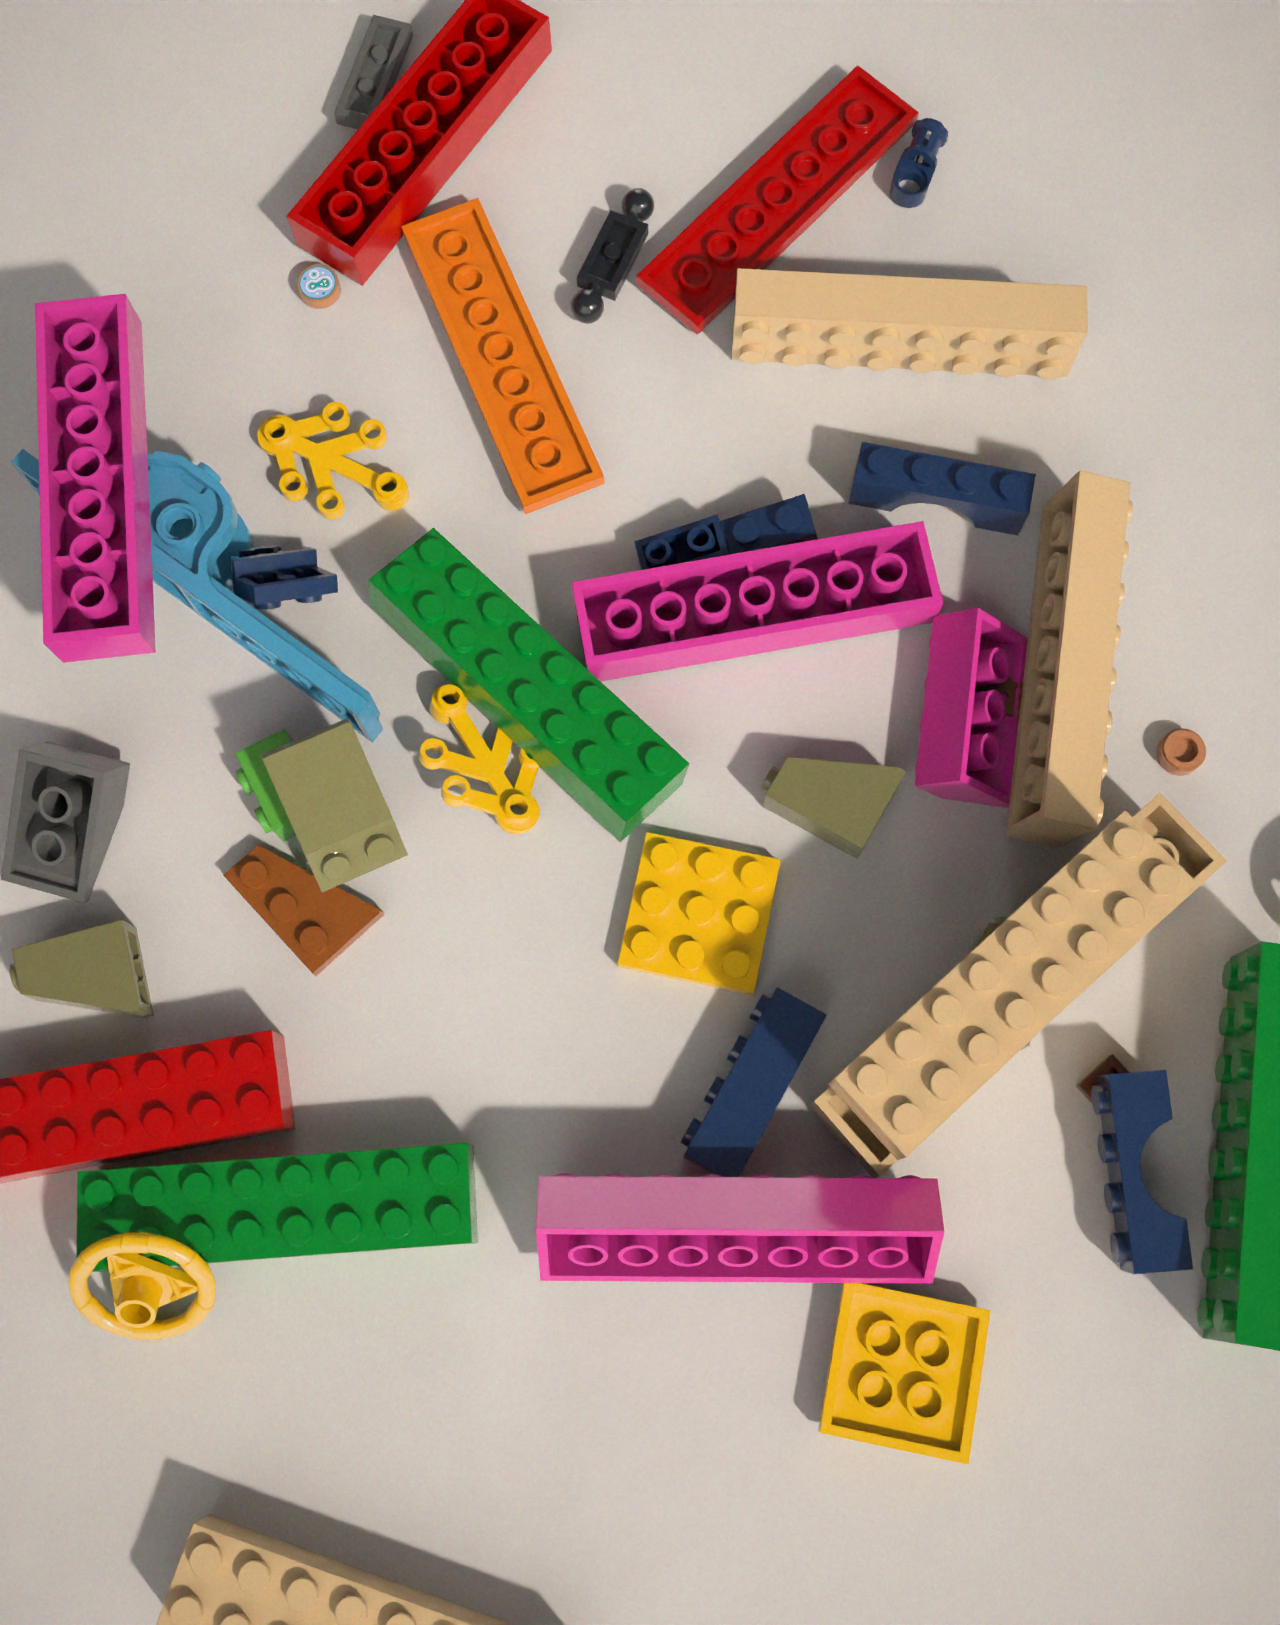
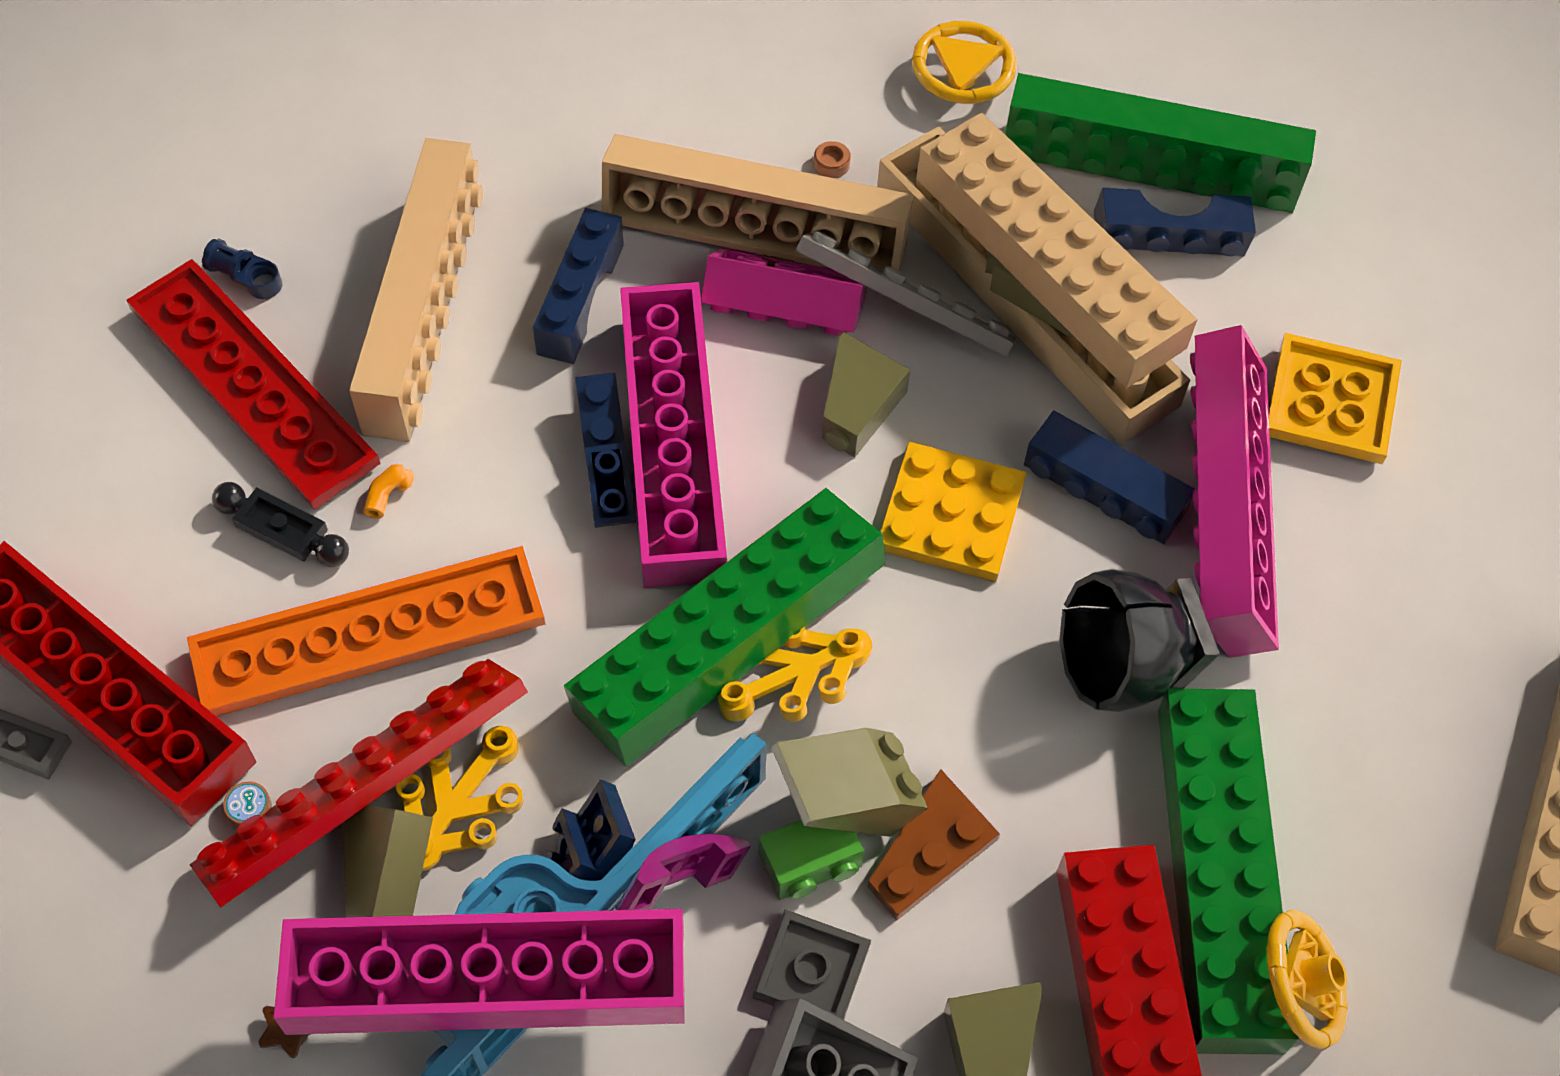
camera: 90 degrees left, 15 degrees down
(172, 799) = (812, 964): none -> dark grey tile
(252, 399) = (383, 861): none -> olive slope
(262, 684) = (703, 856): none -> magenta slope
(337, 369) = (356, 780): none -> red plate
(518, 1105) = (1137, 643): none -> black plate
(666, 339) = (381, 487): none -> light orange arm
(970, 839) = (921, 299): none -> light grey plate

